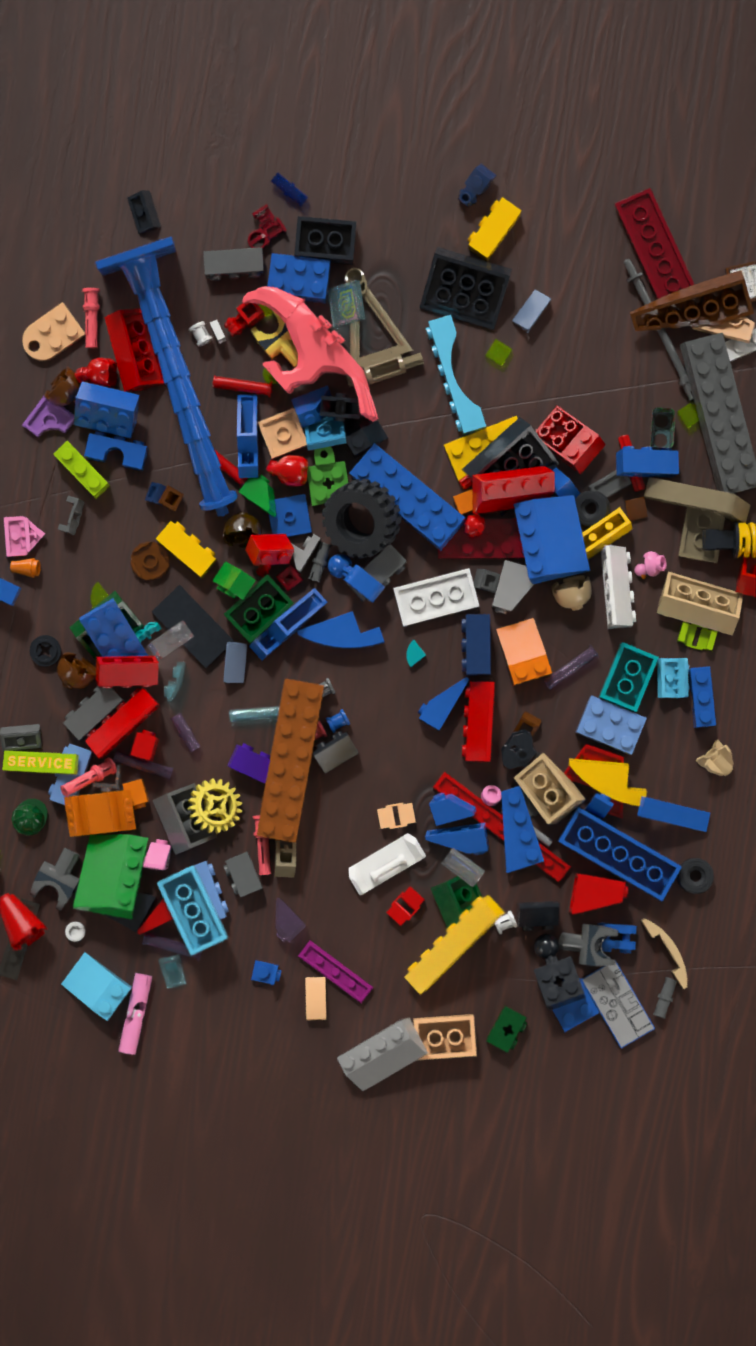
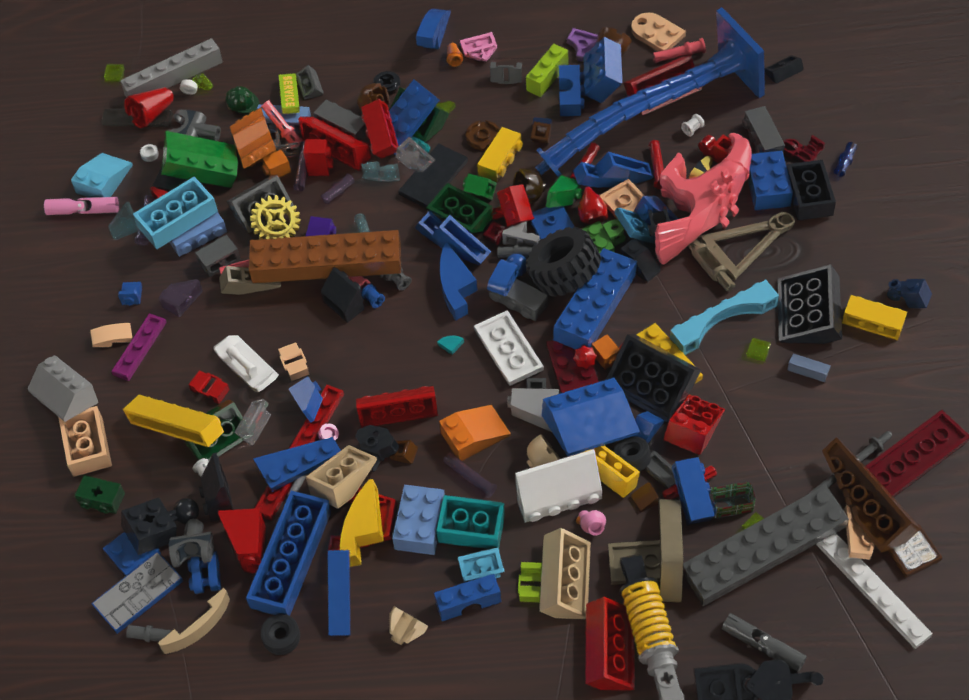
camera: 80 degrees right, 30 degrees down
(98, 372) = (633, 61): red piece -> none
(158, 855) = (220, 183): bright pink slope -> none
(217, 331) = (698, 134): white tile -> none
(235, 662) = (407, 208): sand blue slope -> none
(346, 304) = (758, 216): clear light blue tile -> none
(439, 707) = (403, 372): blue slope -> none
(464, 838) = (280, 416): blue slope -> none
(476, 644) = (470, 384): dark blue brick -> none
(505, 488) = (623, 362): red slope -> none
(599, 806) = (334, 522): blue slope -> none

